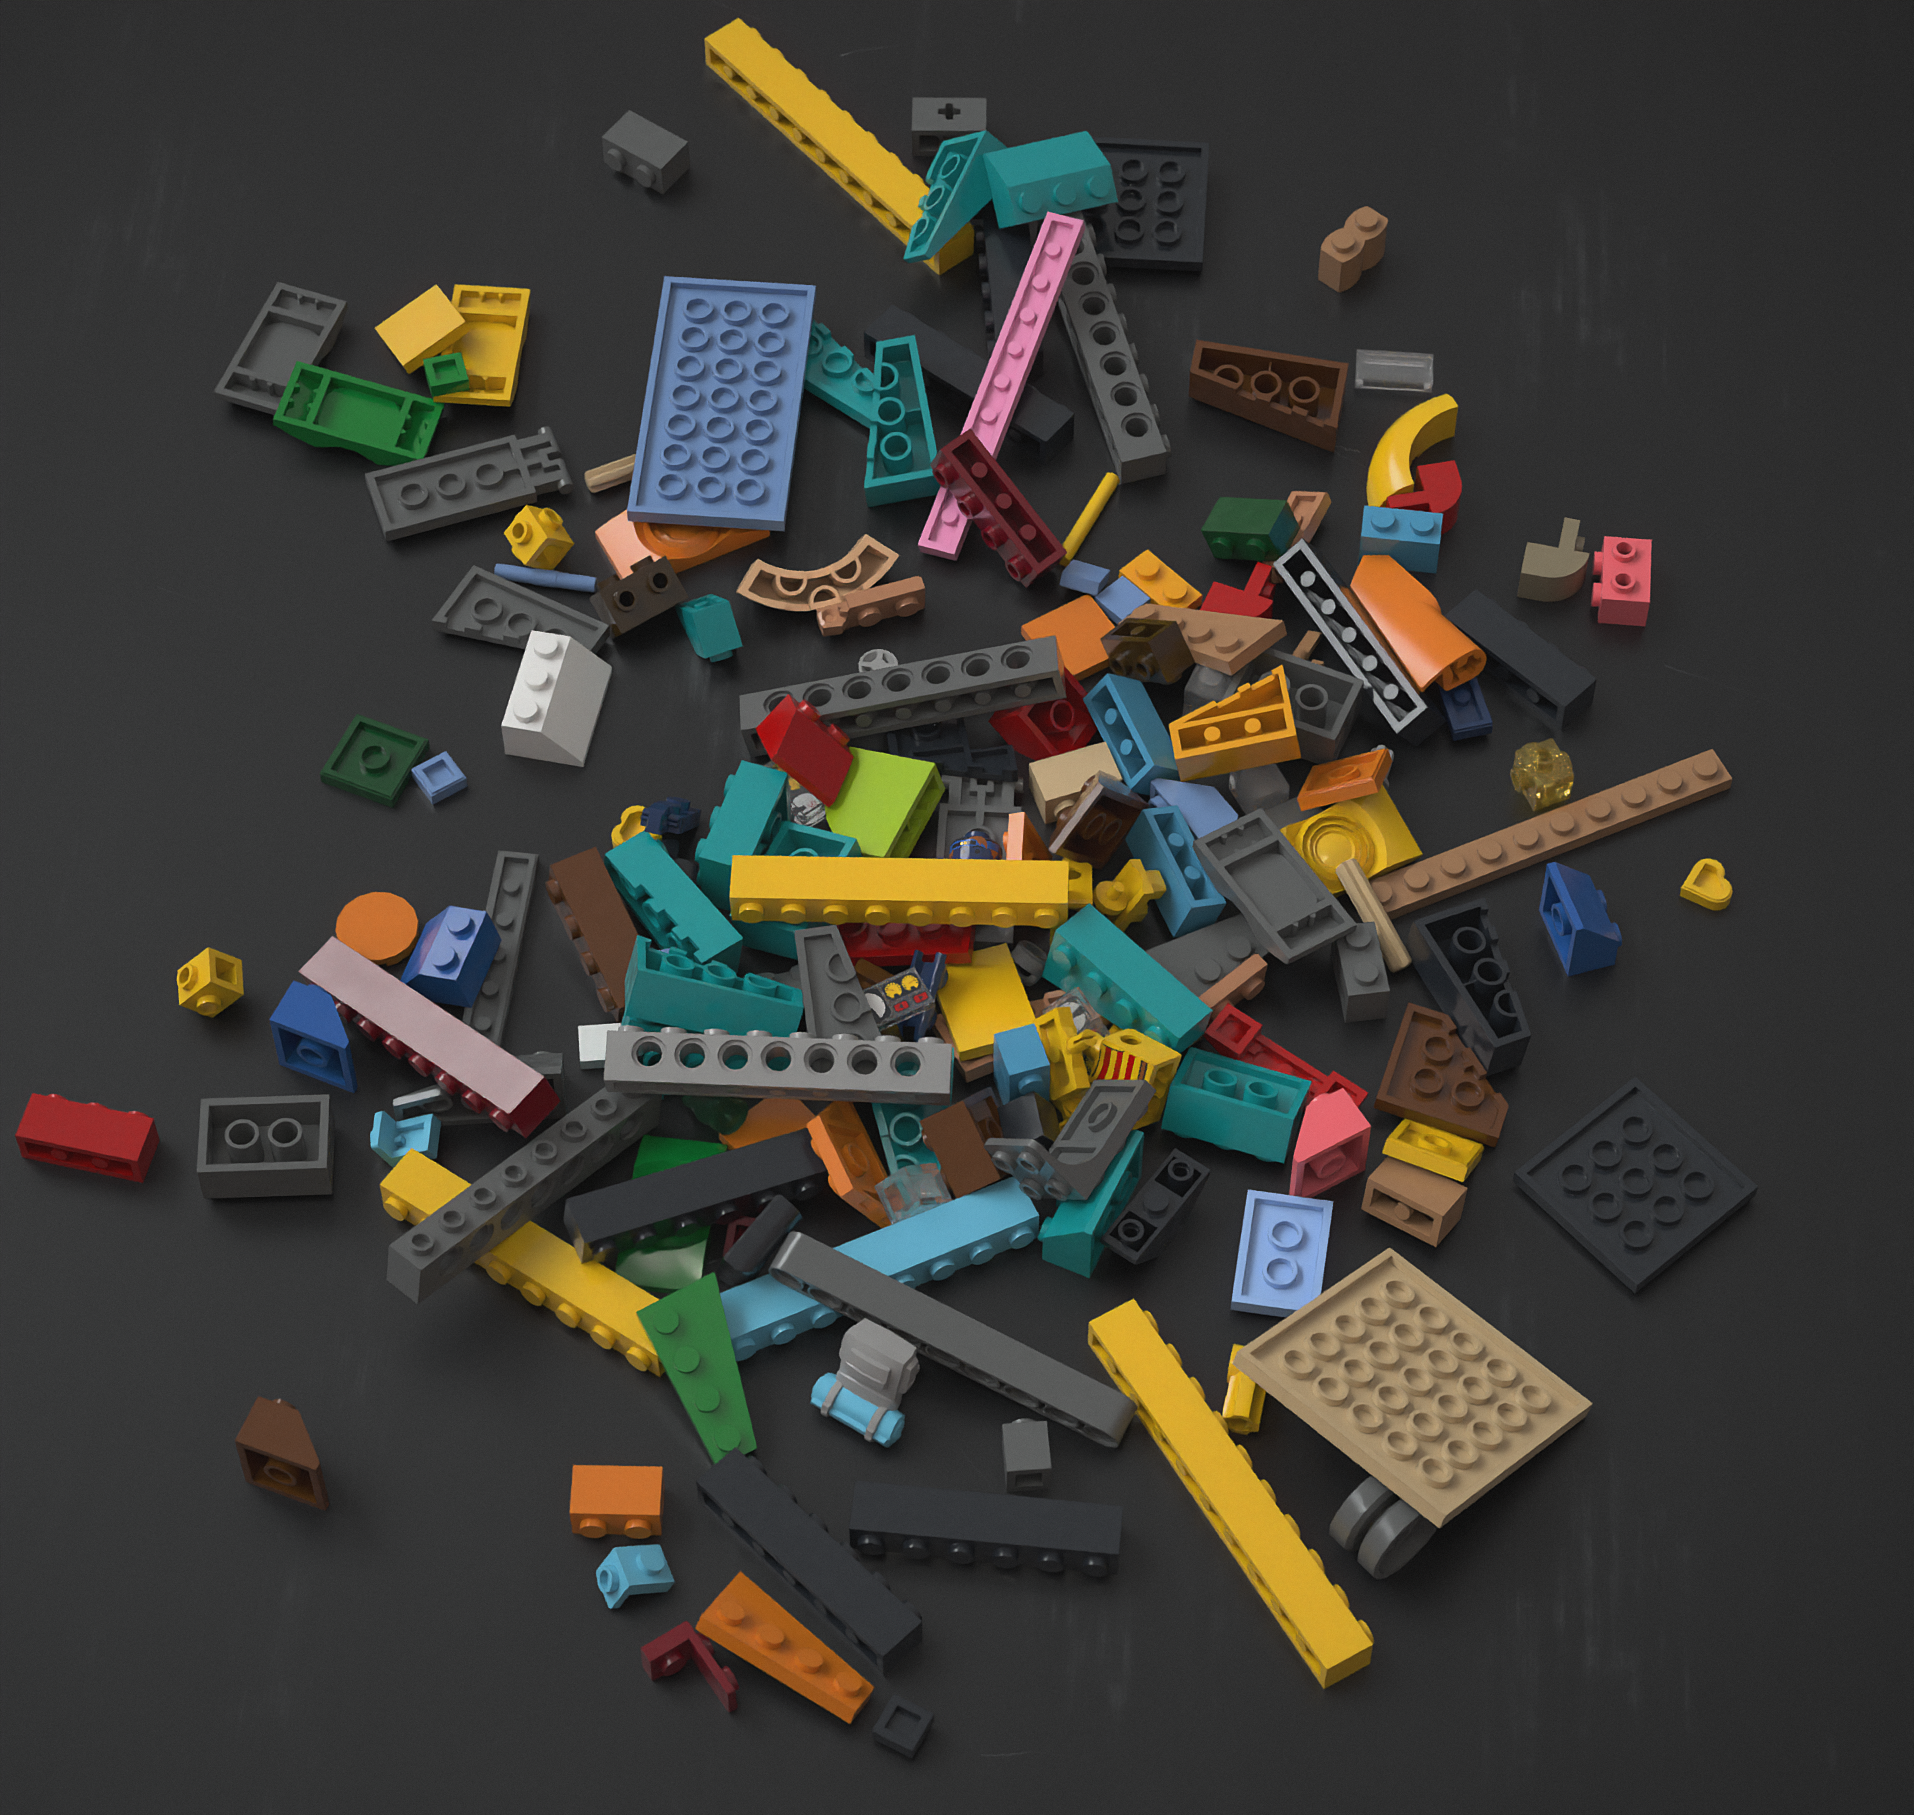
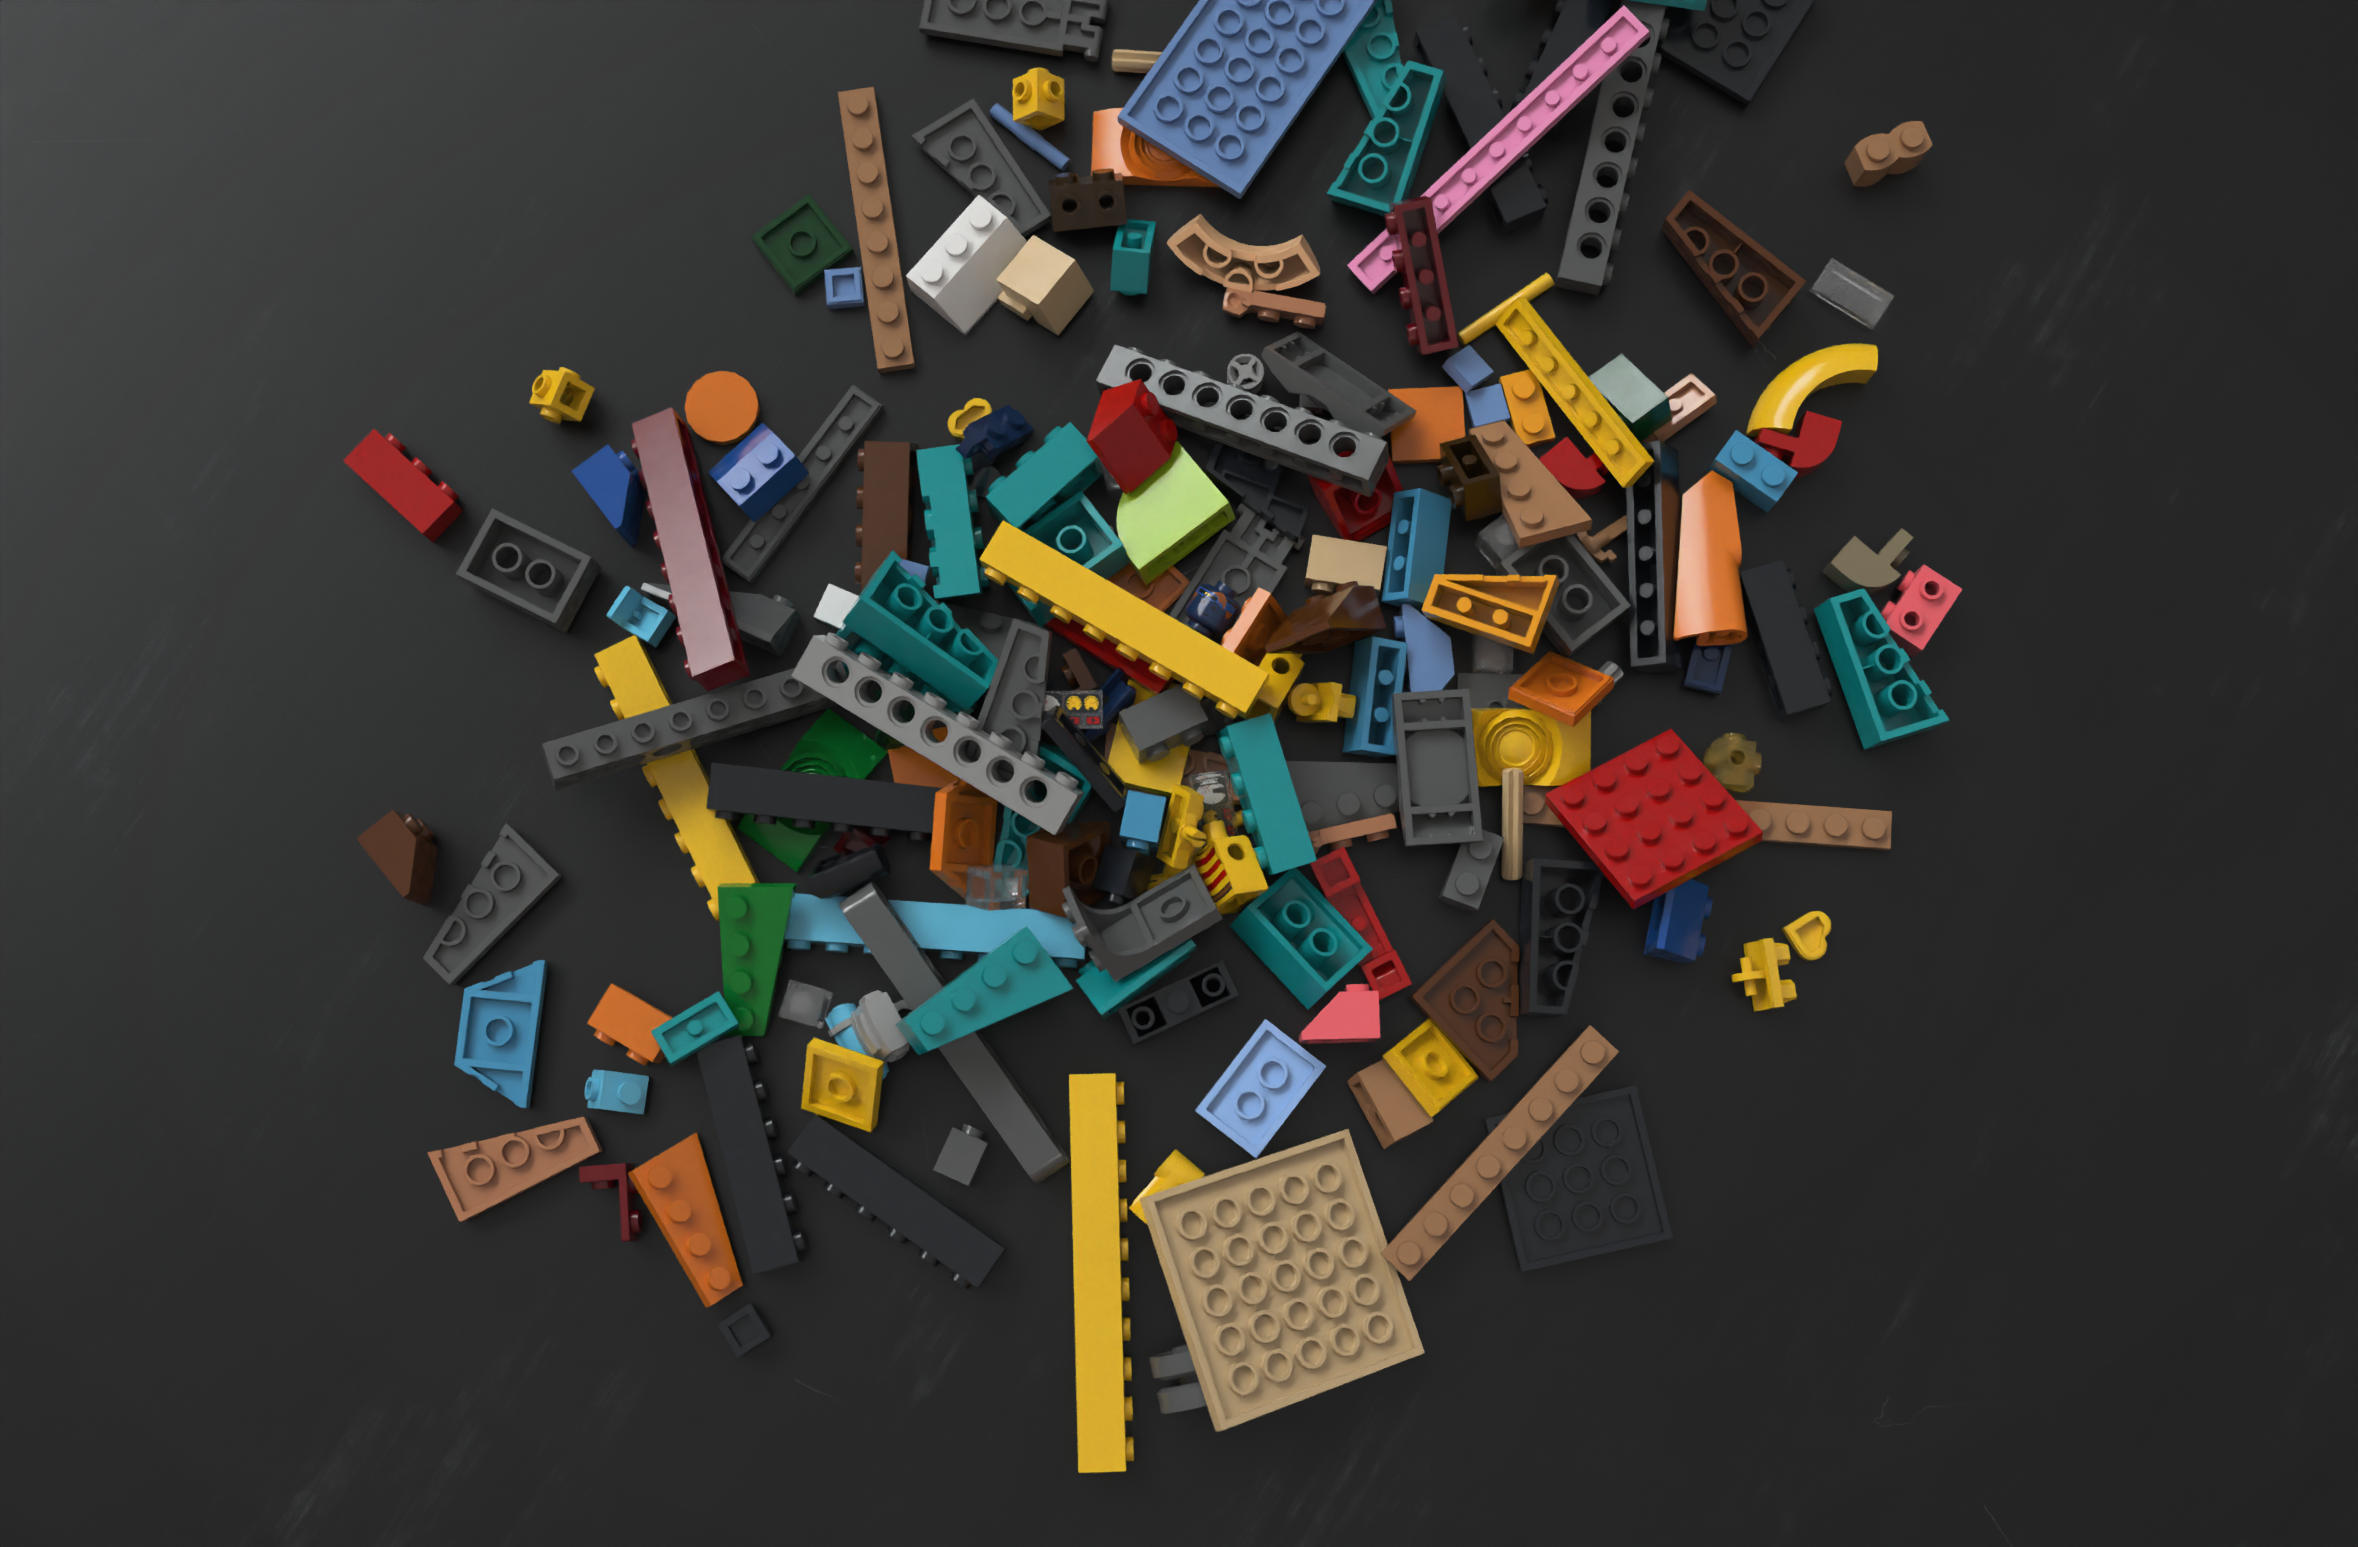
camera: 30 degrees right, 25 degrees up
(401, 1461) = (499, 896): none -> dark grey wing
(442, 717) = (876, 230): none -> medium nougat plate
(481, 1578) = (502, 1031): none -> dark azure wing
(554, 1705) = (502, 1167): none -> nougat wing
(639, 680) = (1044, 285): none -> tan plate
(686, 1459) = (695, 1028): none -> teal plate
(783, 1396) = (805, 1004): none -> clear brick
(867, 1441) = (842, 1084): none -> yellow plate
(935, 1027) = (1085, 758): none -> black tile
(966, 635) = (1335, 386): none -> dark grey slope
(970, 1265) = (992, 989): none -> teal wedge
(988, 975) = (1163, 724): none -> dark grey brick
(1197, 542) = (1574, 392): none -> yellow plate
(1500, 838) = (1653, 818): none -> red plate
(1546, 1193) = (1499, 1153): none -> medium nougat plate
(1619, 643) = (1874, 673): none -> teal wedge
(1689, 932) = (1762, 974): none -> yellow hips

